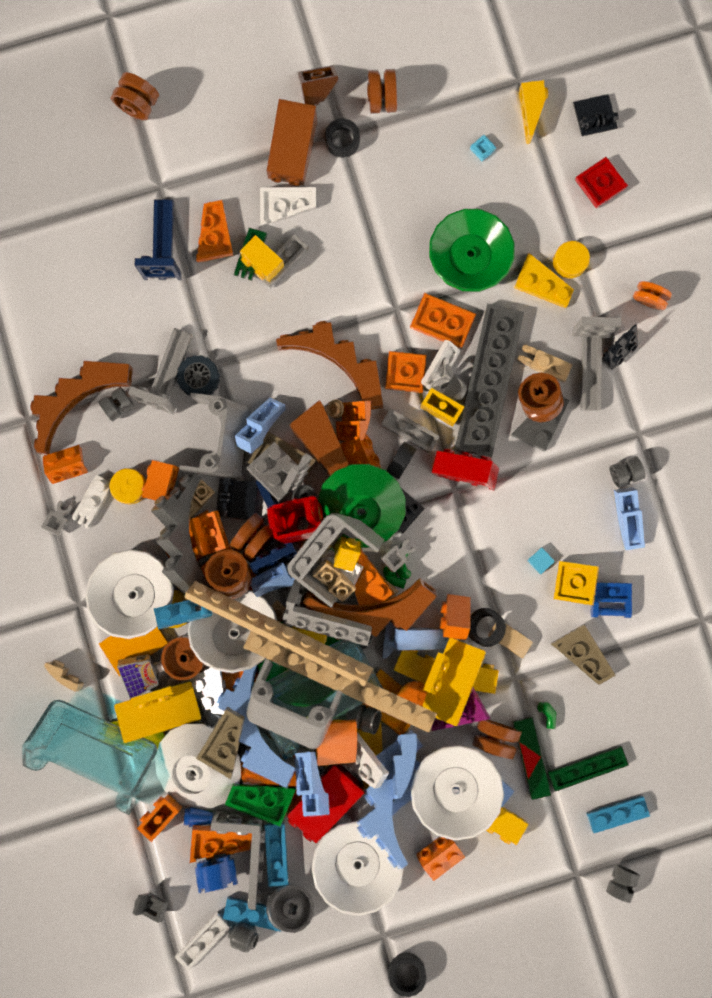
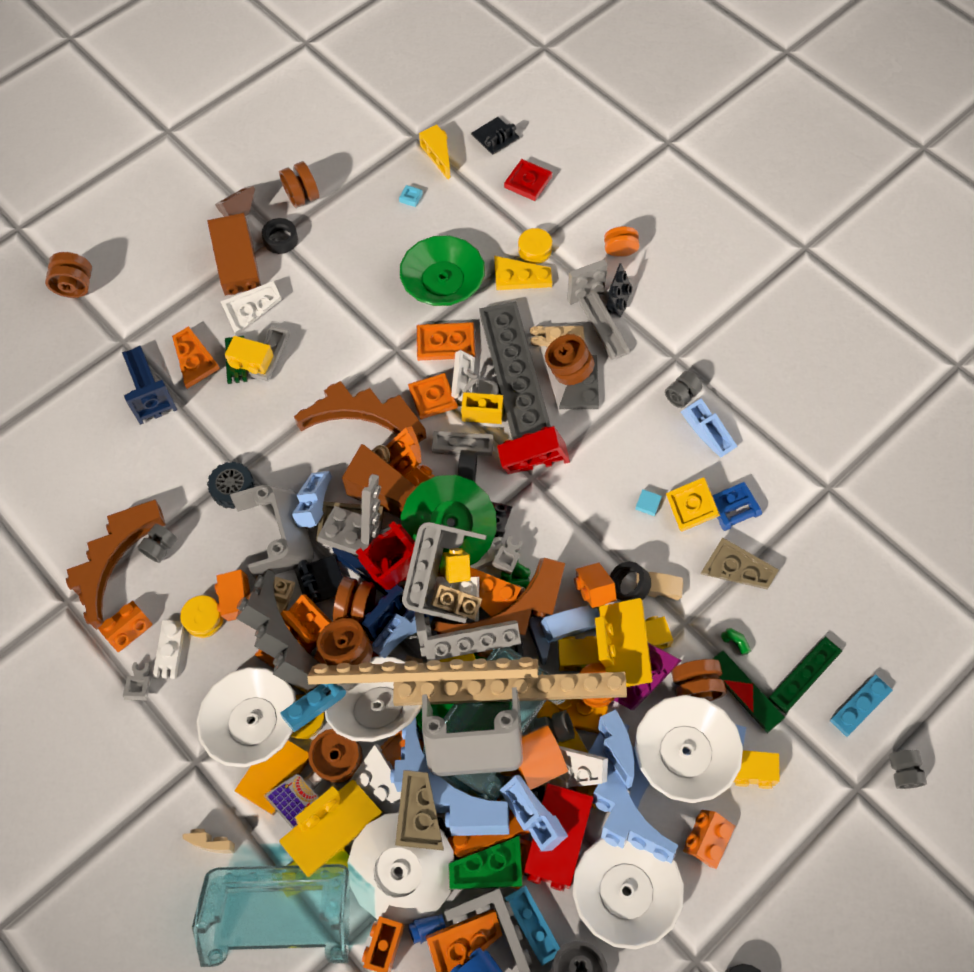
camera: 25 degrees left, 20 degrees down
(166, 376) = (198, 513): light grey bracket -> none

